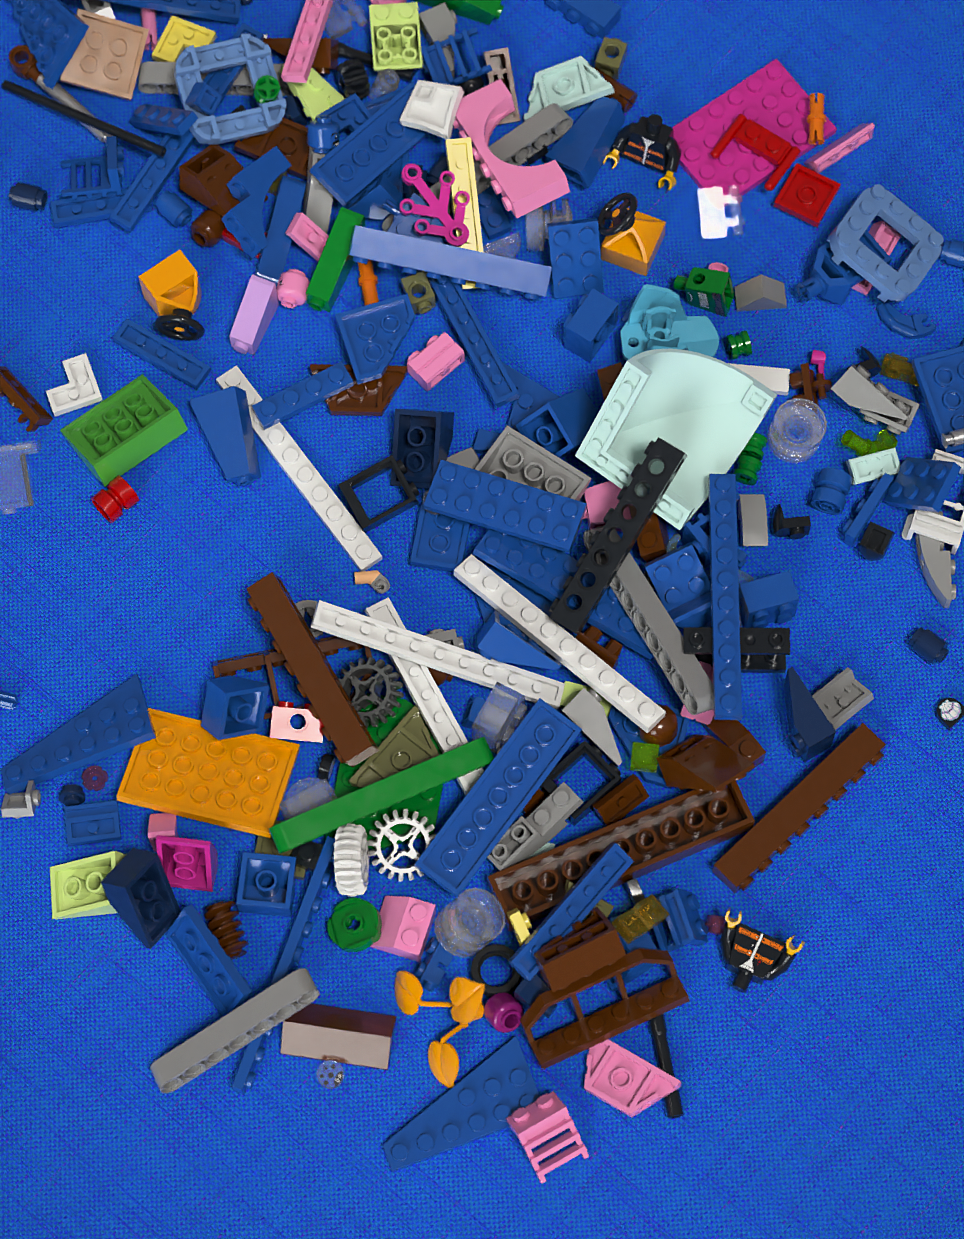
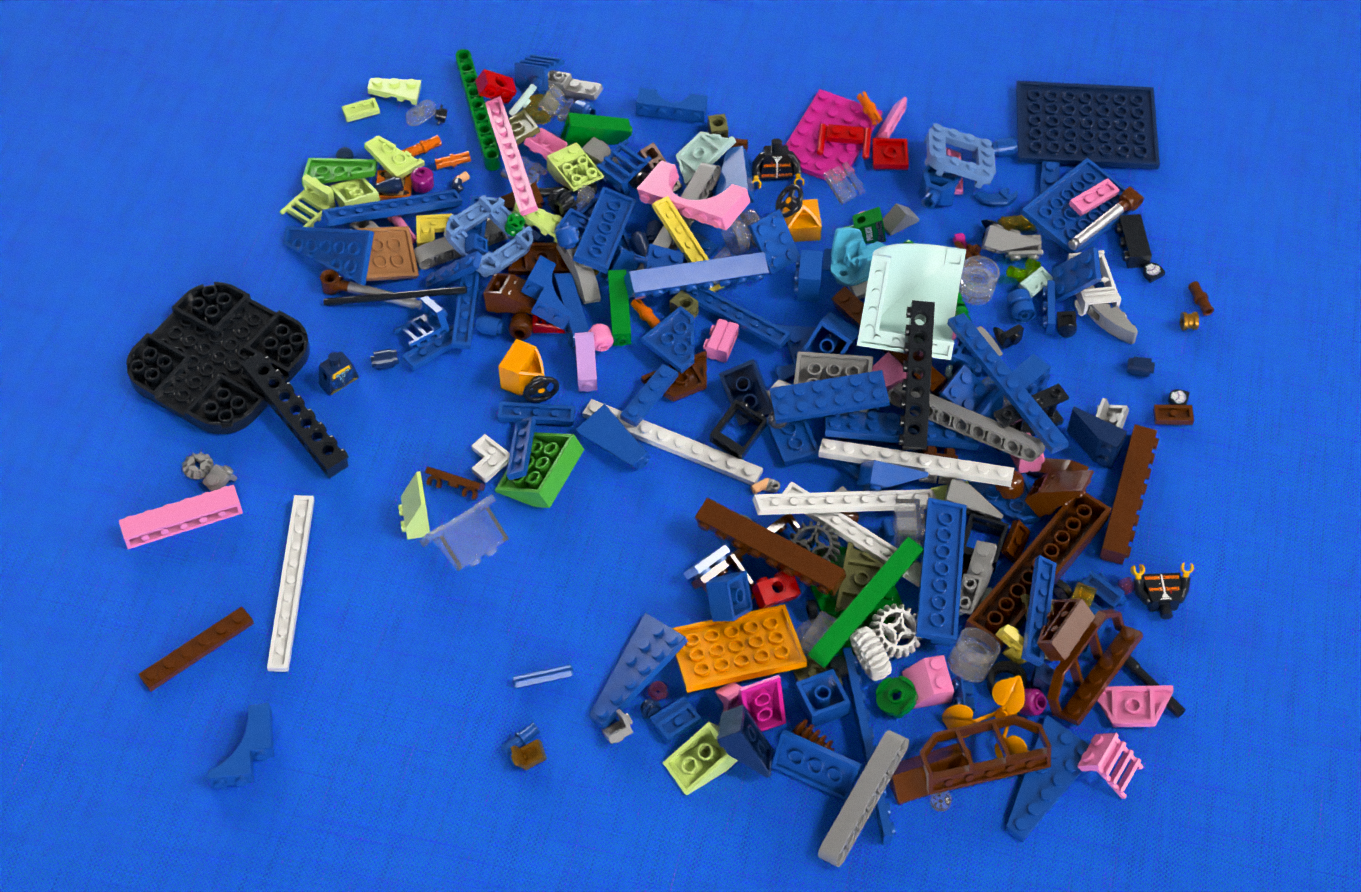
camera: 30 degrees left, 15 degrees down
(112, 501) = (562, 512): red wheel -> none
(114, 393) = (521, 448): none -> blue plate
(248, 646) = (707, 563): none -> light blue plate
(307, 235) = (593, 302): bright pink plate -> none
(396, 1071) = (987, 770): none -> reddish brown plate
(432, 108) = (628, 193): white plate -> none
(436, 208) = (669, 245): dark pink plant -> none
(644, 757) = (1014, 507): clear neon green plate -> none
(927, 730) = (1173, 414): none -> reddish brown plate

